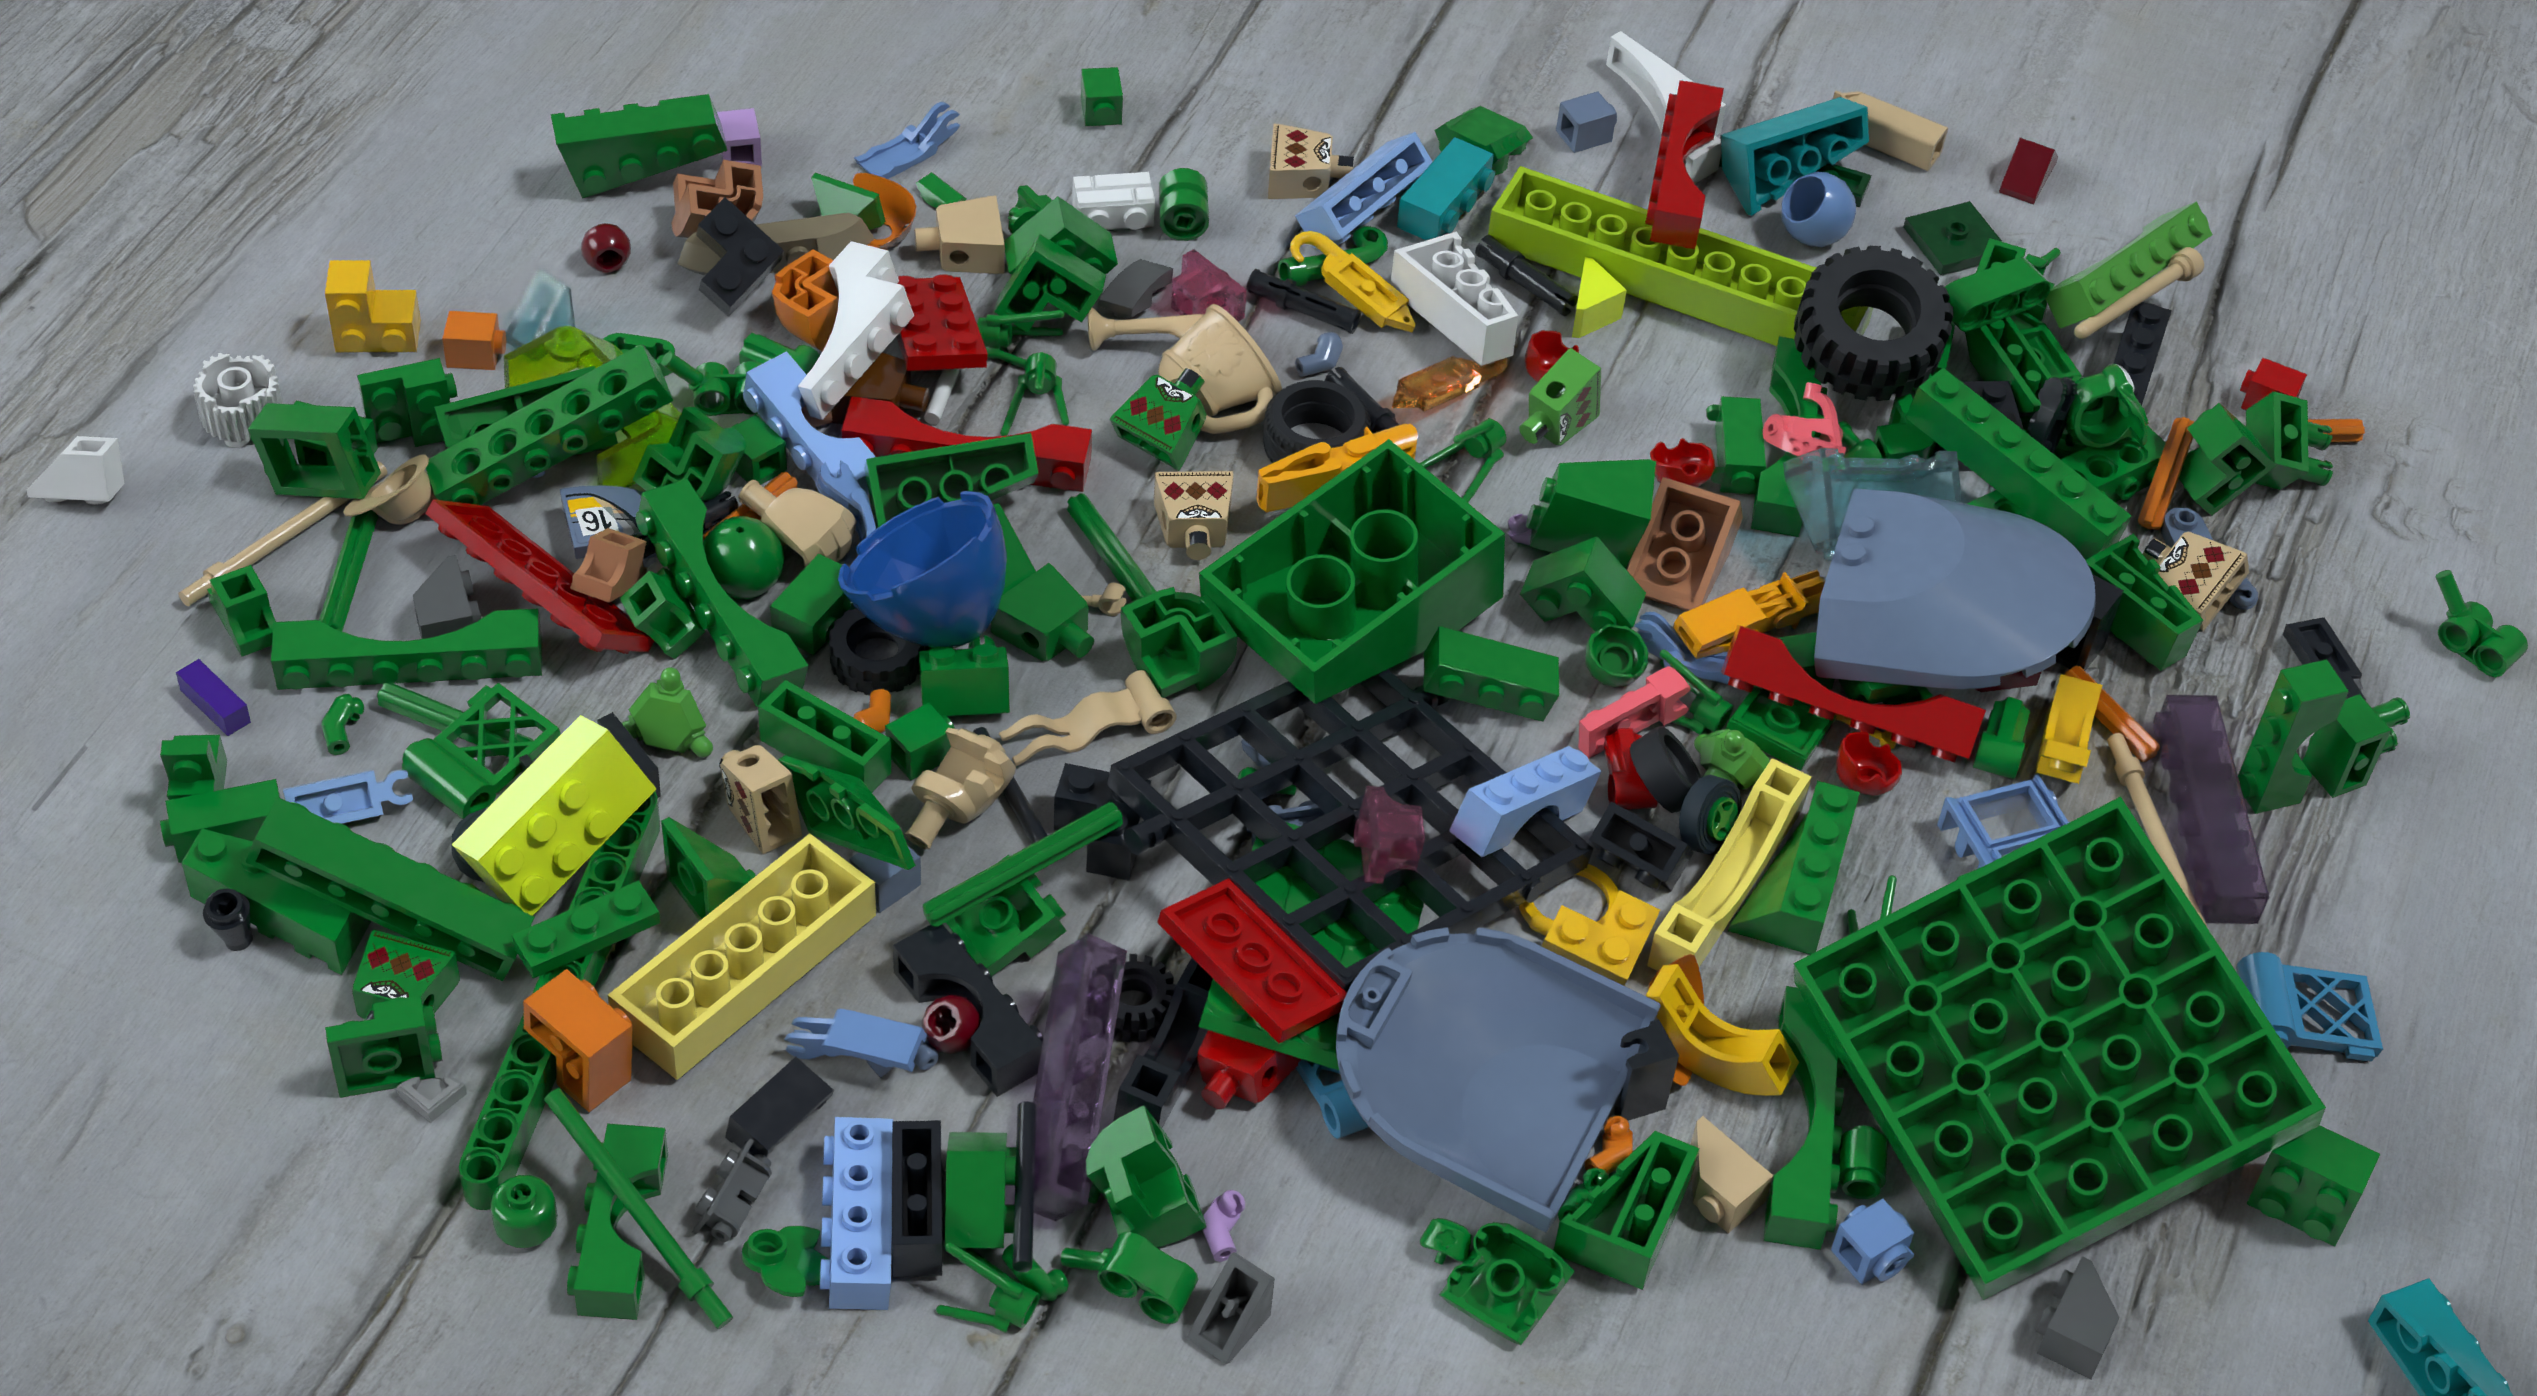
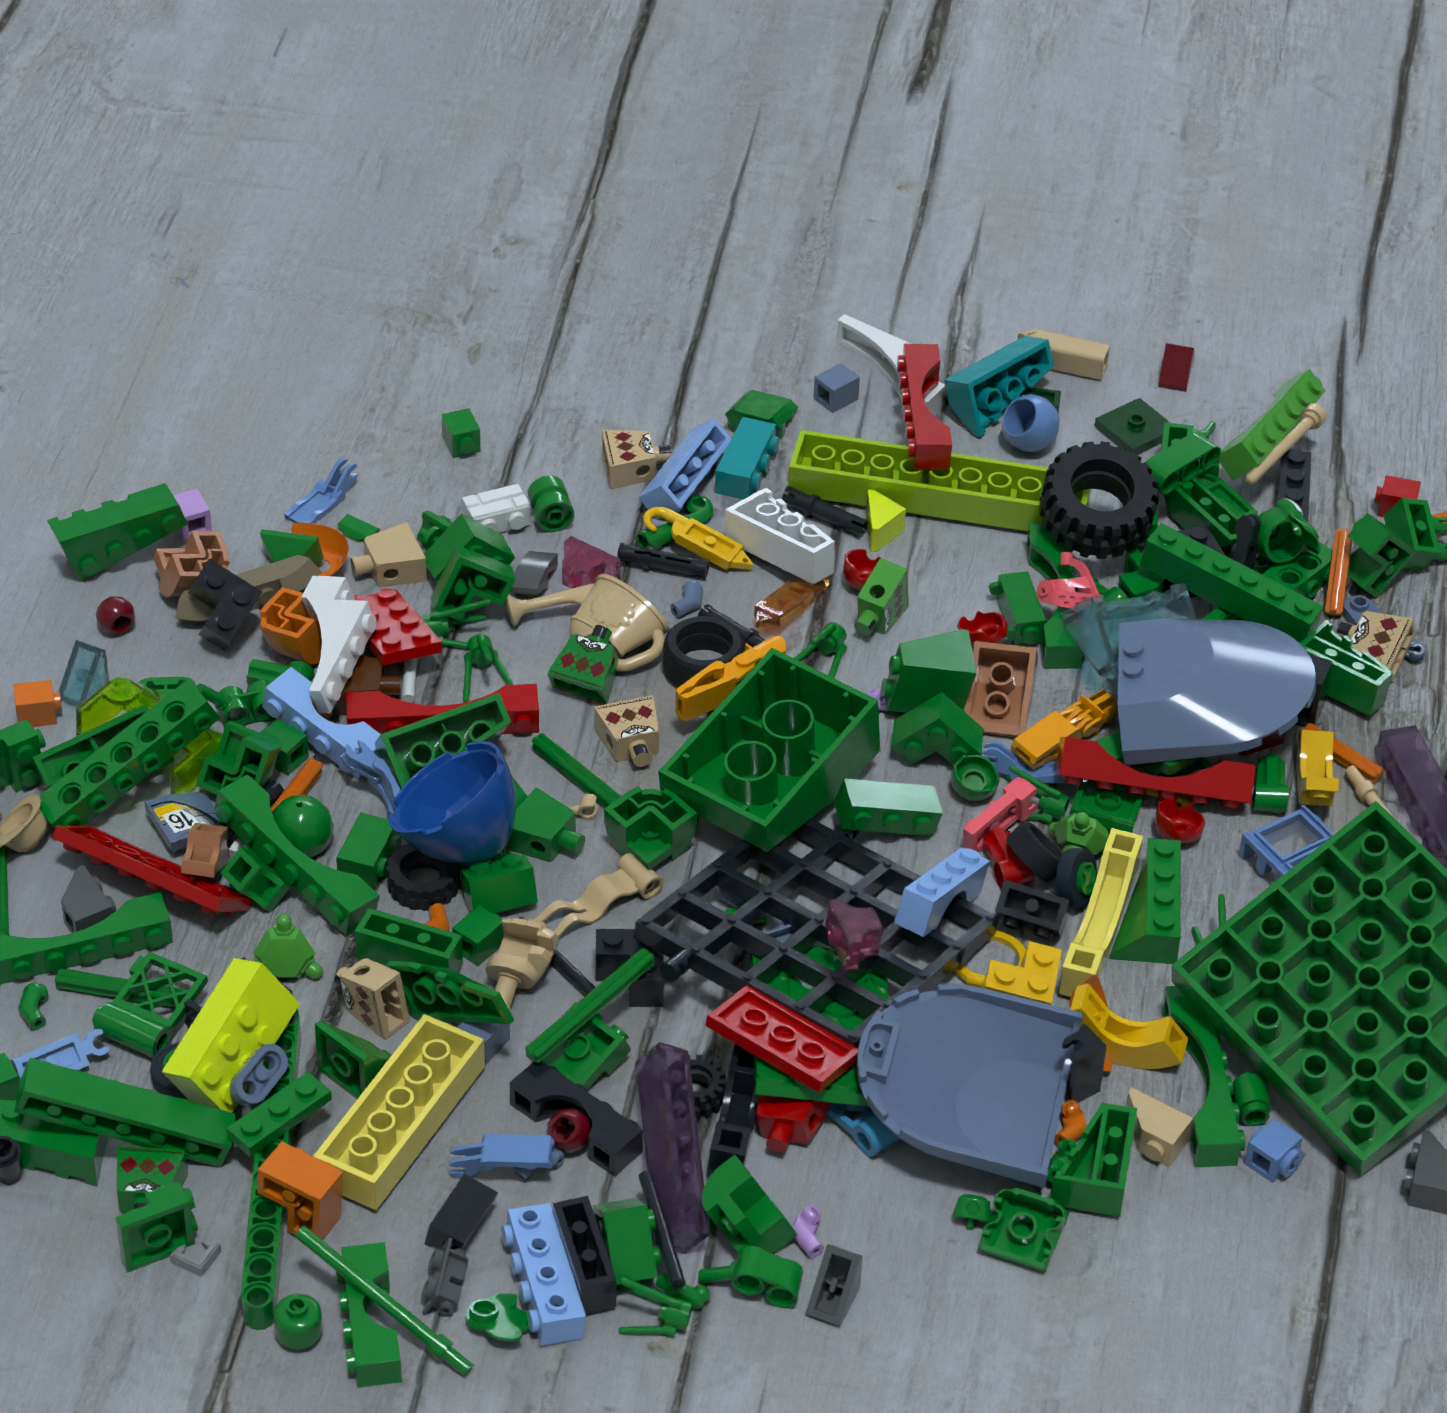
camera: 10 degrees left, 5 degrees down
(572, 873) = (257, 1077): none -> sand blue plate
(803, 520) = (339, 789): tan piece -> none

